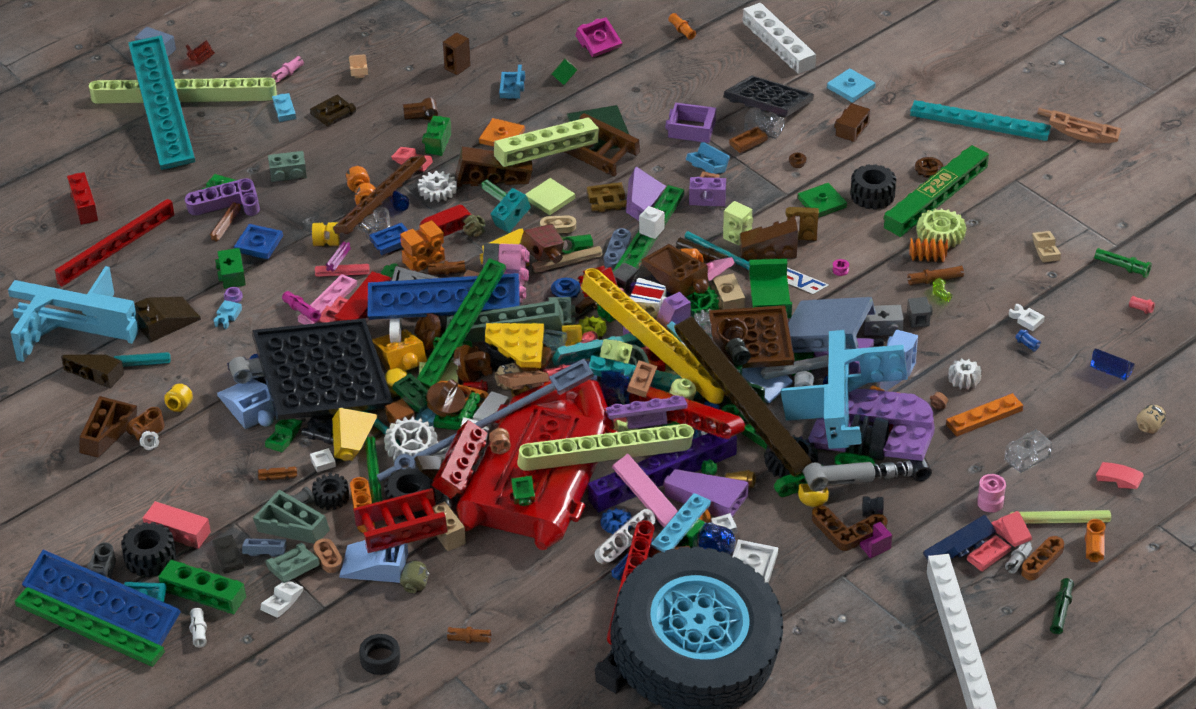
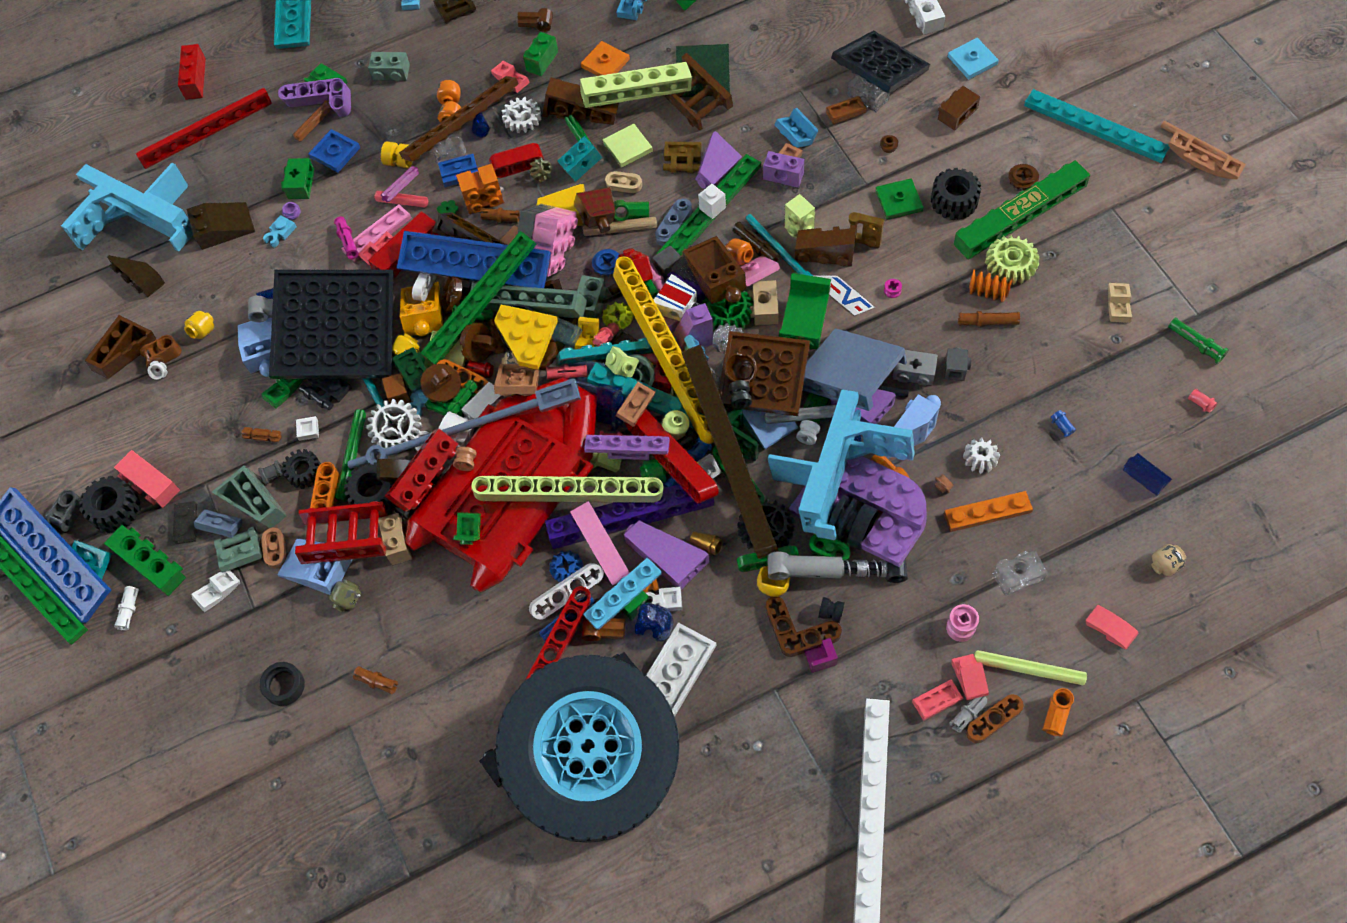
camera: 20 degrees right, 20 degrees up
(145, 359) = (184, 270): teal axle -> none
(350, 432) = (340, 403): yellow slope -> none
(691, 113) = (797, 67): medium lavender window -> none
(709, 467) = (678, 521): green plate -> none
(939, 290) = (987, 338): clear neon green arm -> none
(960, 541) = (912, 679): dark blue bracket -> none
(1026, 318) = (1070, 394): white plate -> none
(1063, 600) = (984, 814): dark green pin -> none

